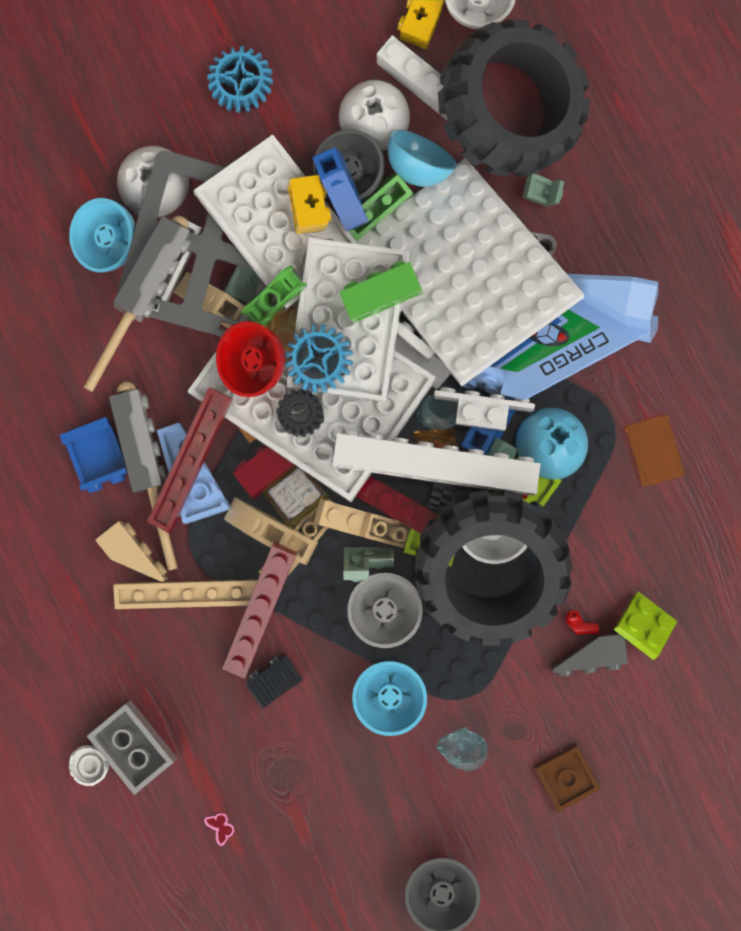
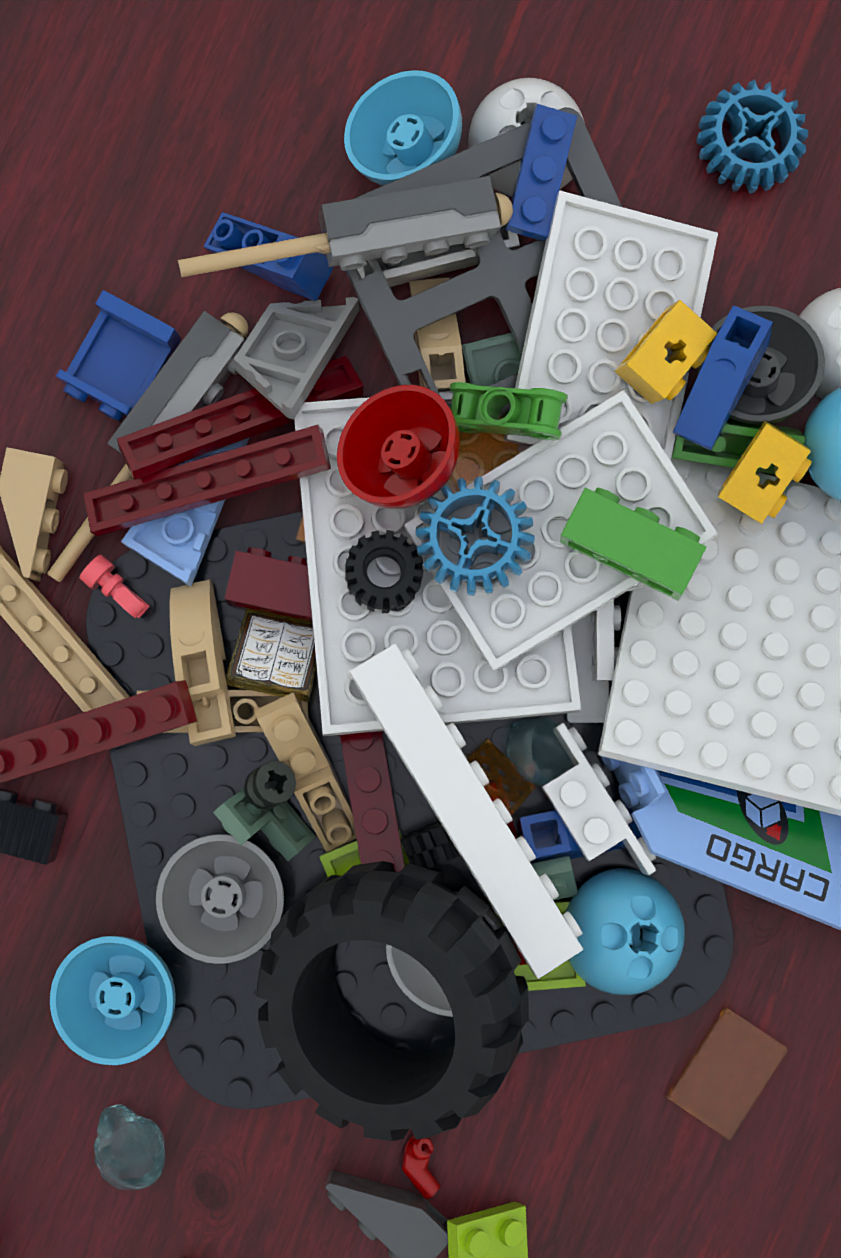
camera: 55 degrees right, 0 degrees up
(89, 351) = (297, 274): none -> blue slope
(160, 371) = (292, 349): none -> light grey wing
(171, 422) = (225, 423): none -> dark red plate
(177, 190) = (541, 172): none -> blue plate
(200, 544) = (99, 573): none -> coral piece
(351, 551) = (261, 790): none -> pearl dark grey wheel
(398, 221) = (742, 485): none -> yellow brick

